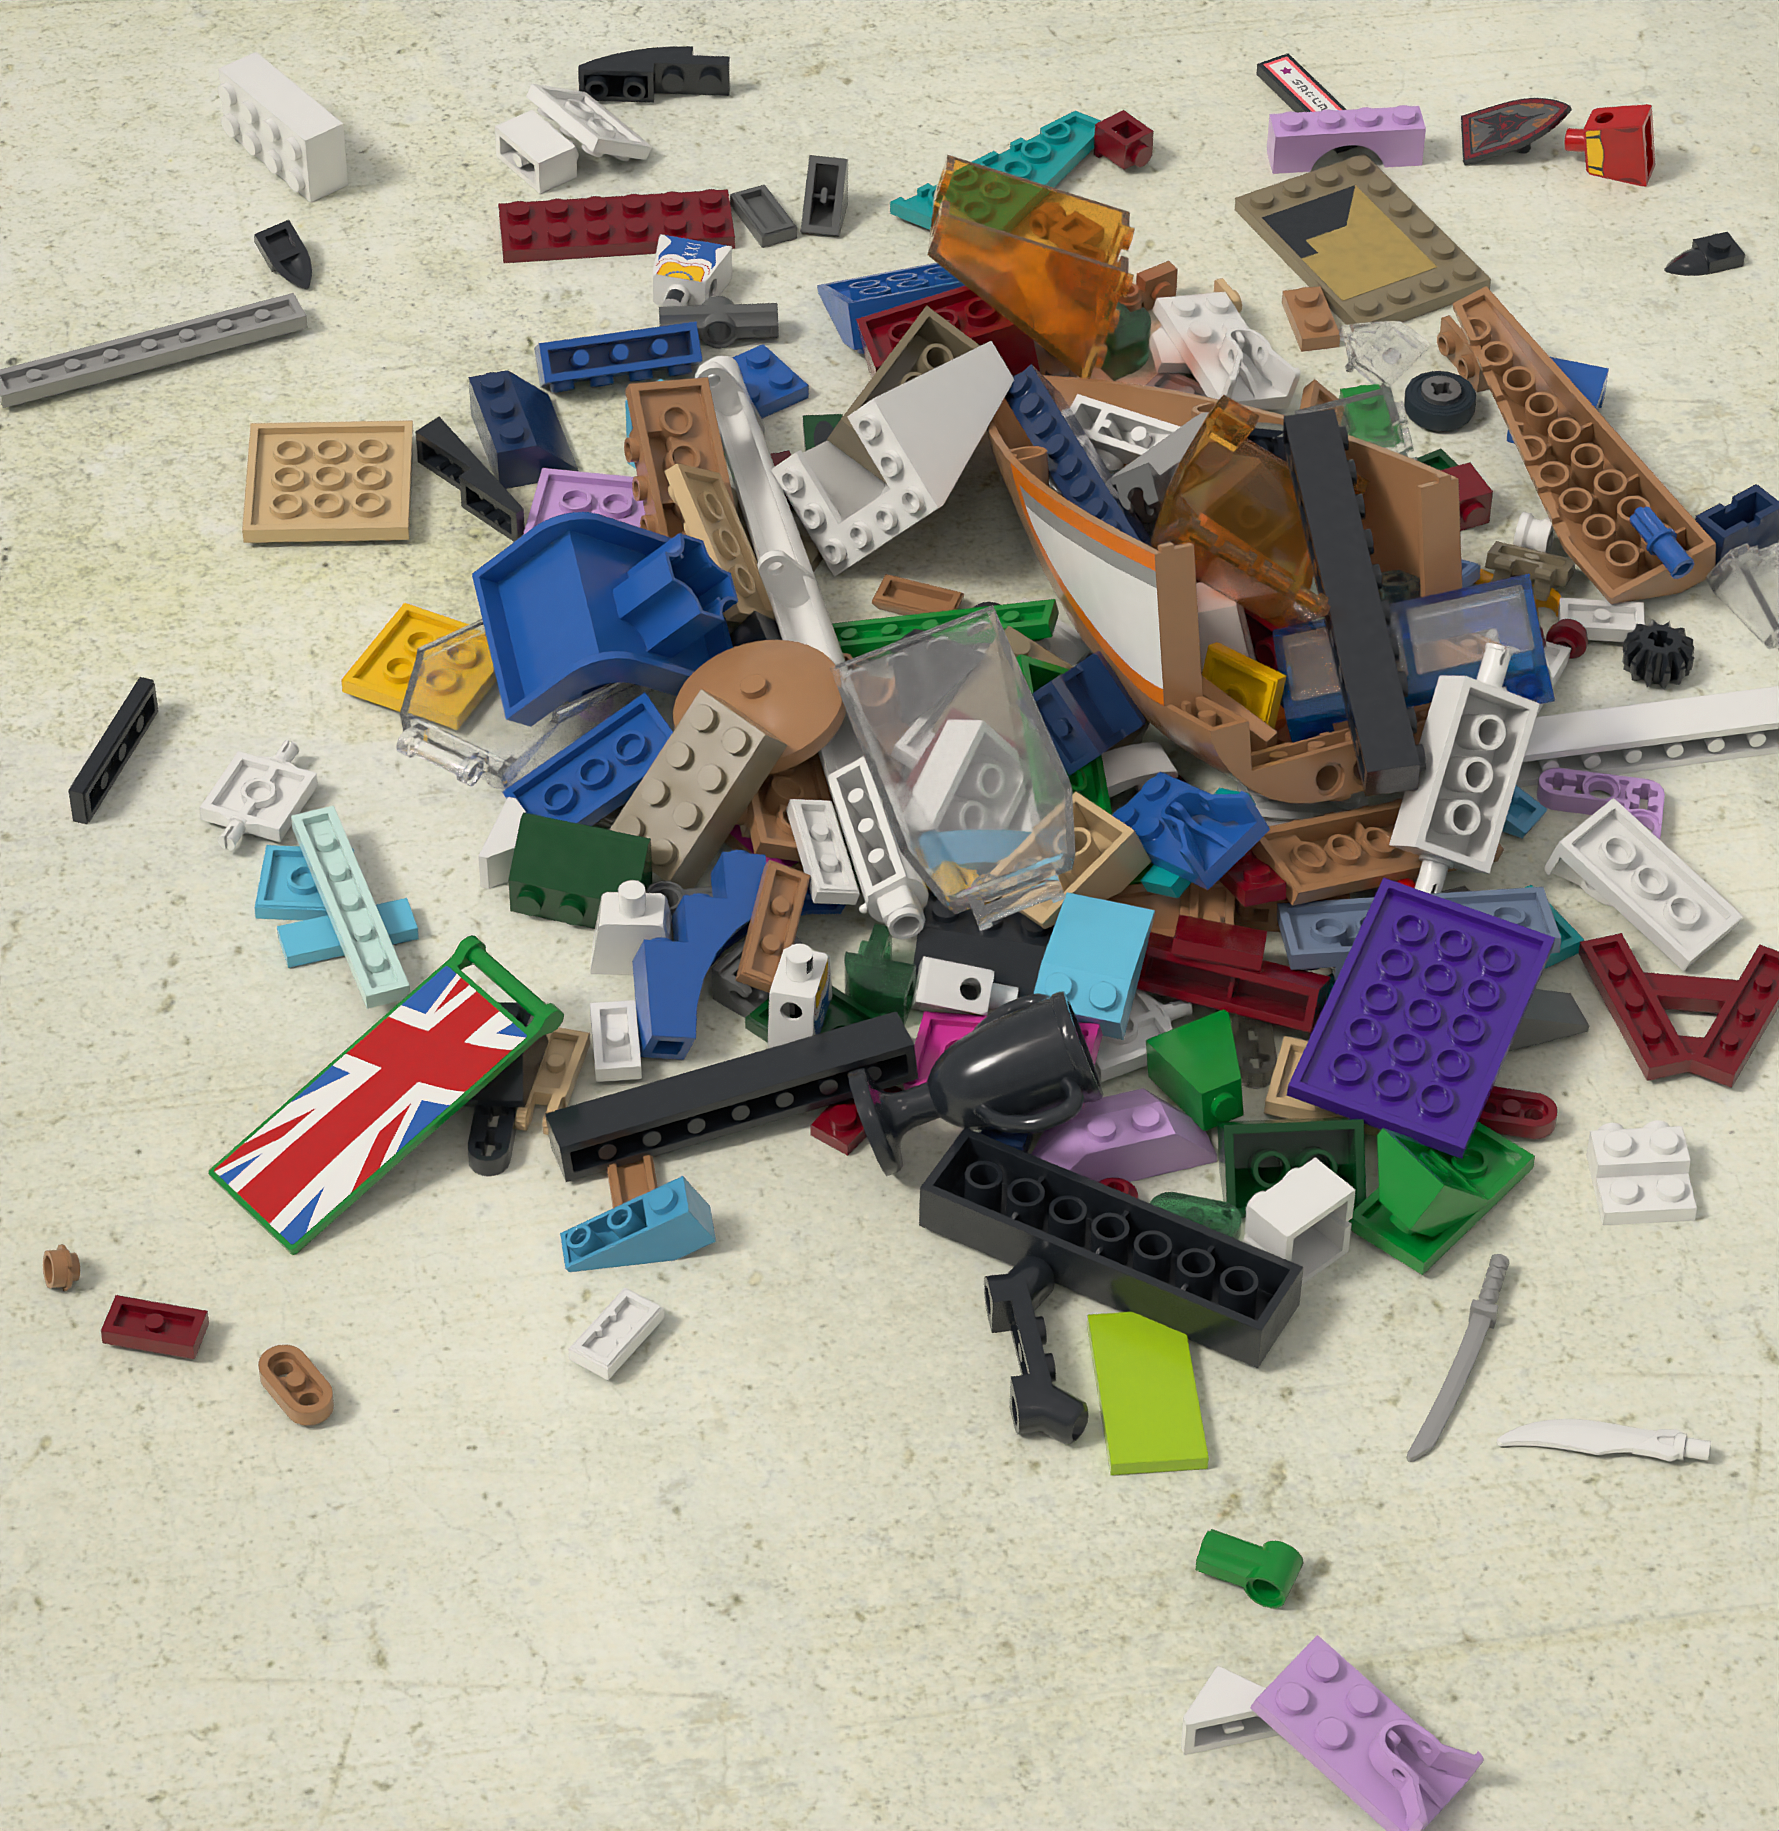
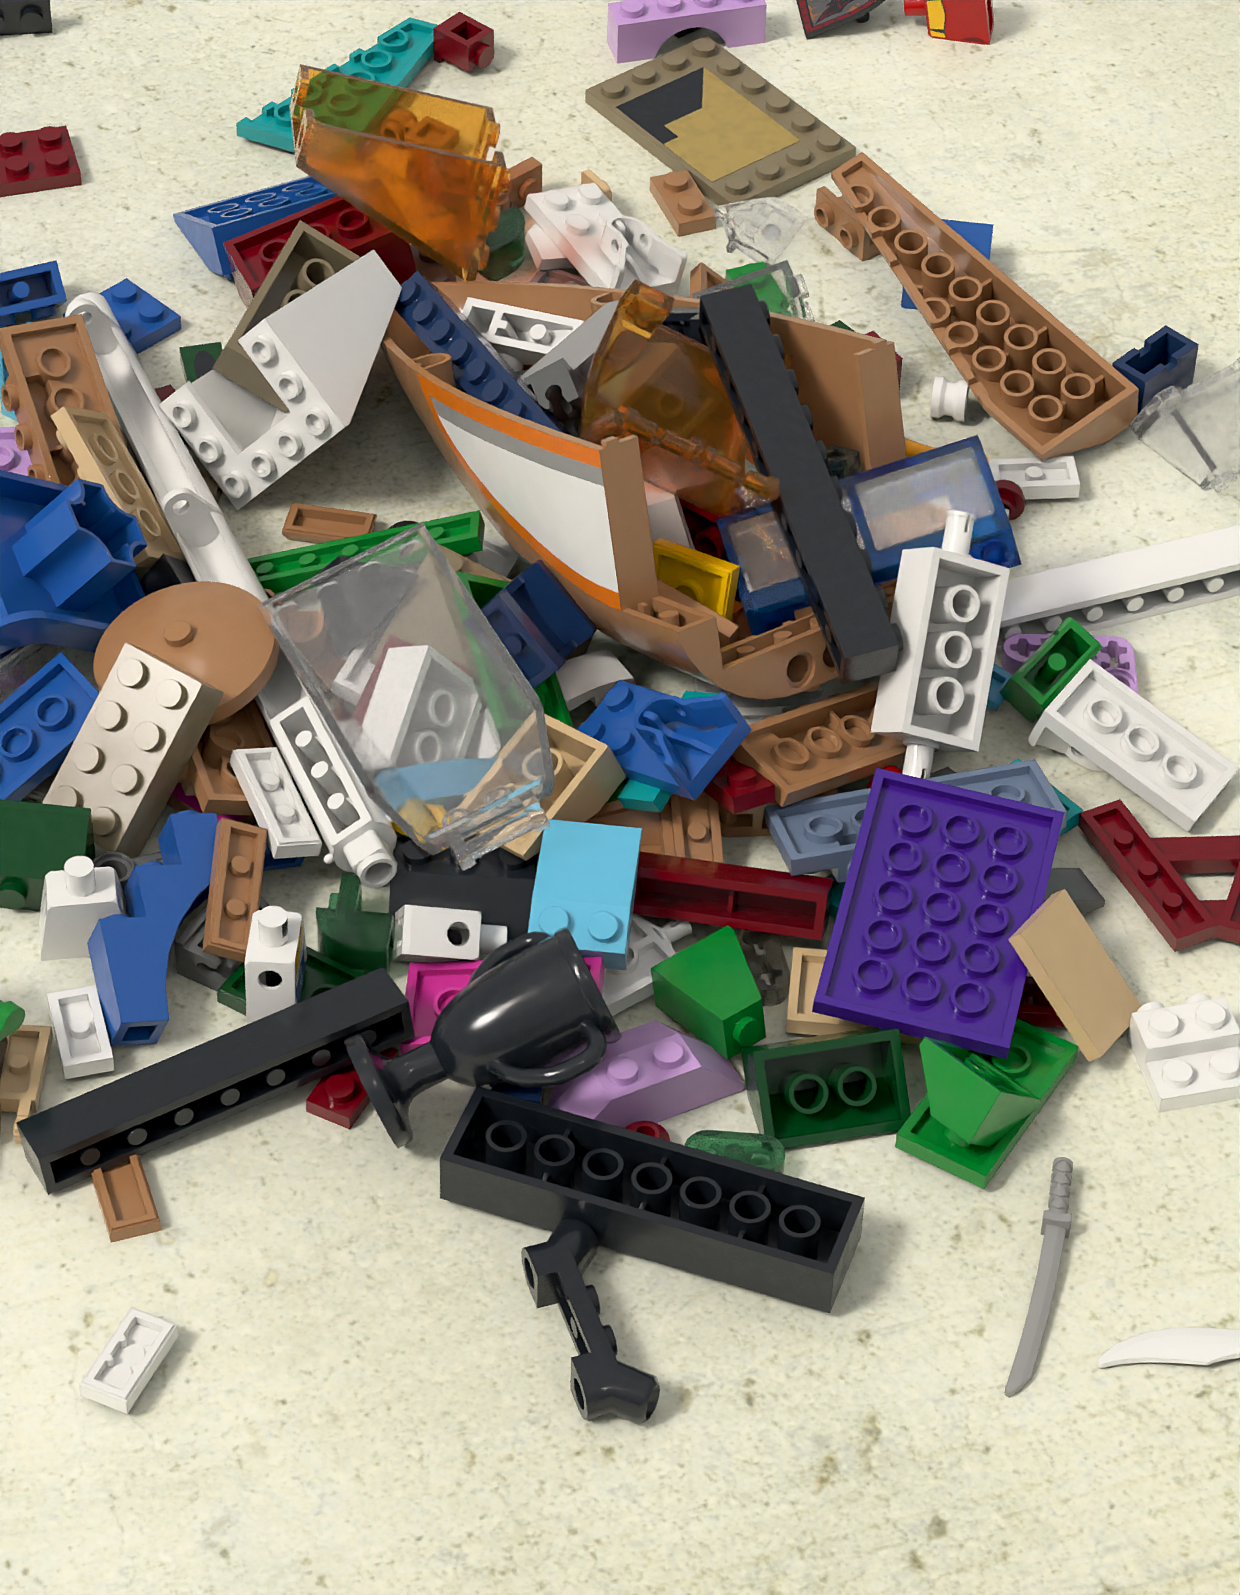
camera: 10 degrees left, 0 degrees up
(642, 1231) = (140, 1241): dark azure slope -> none
(689, 271) = (39, 214): white torso -> none
(723, 321) = (84, 259): dark grey piece -> none
(763, 216) = (106, 149): dark grey tile -> none
(825, 195) = (168, 122): dark grey slope -> none
(1146, 1395) = (716, 1358): lime tile -> none
(1219, 943) = (712, 855): dark red tile -> none
(1262, 1571) = (878, 1541): green piece -> none
(1303, 1218) = (853, 1142): white piece -> none
(1440, 400) = (830, 271): black wheel -> none
(1541, 1089) = (1075, 974): none -> tan tile
(1545, 568) = (934, 426): dark tan plate -> none
(1576, 801) = (1050, 669): none -> green brick
(1658, 654) = (1098, 507): black gear -> none
(1662, 542) = (1085, 392): blue axle -> none
(1708, 256) = (1064, 107): black plate -> none

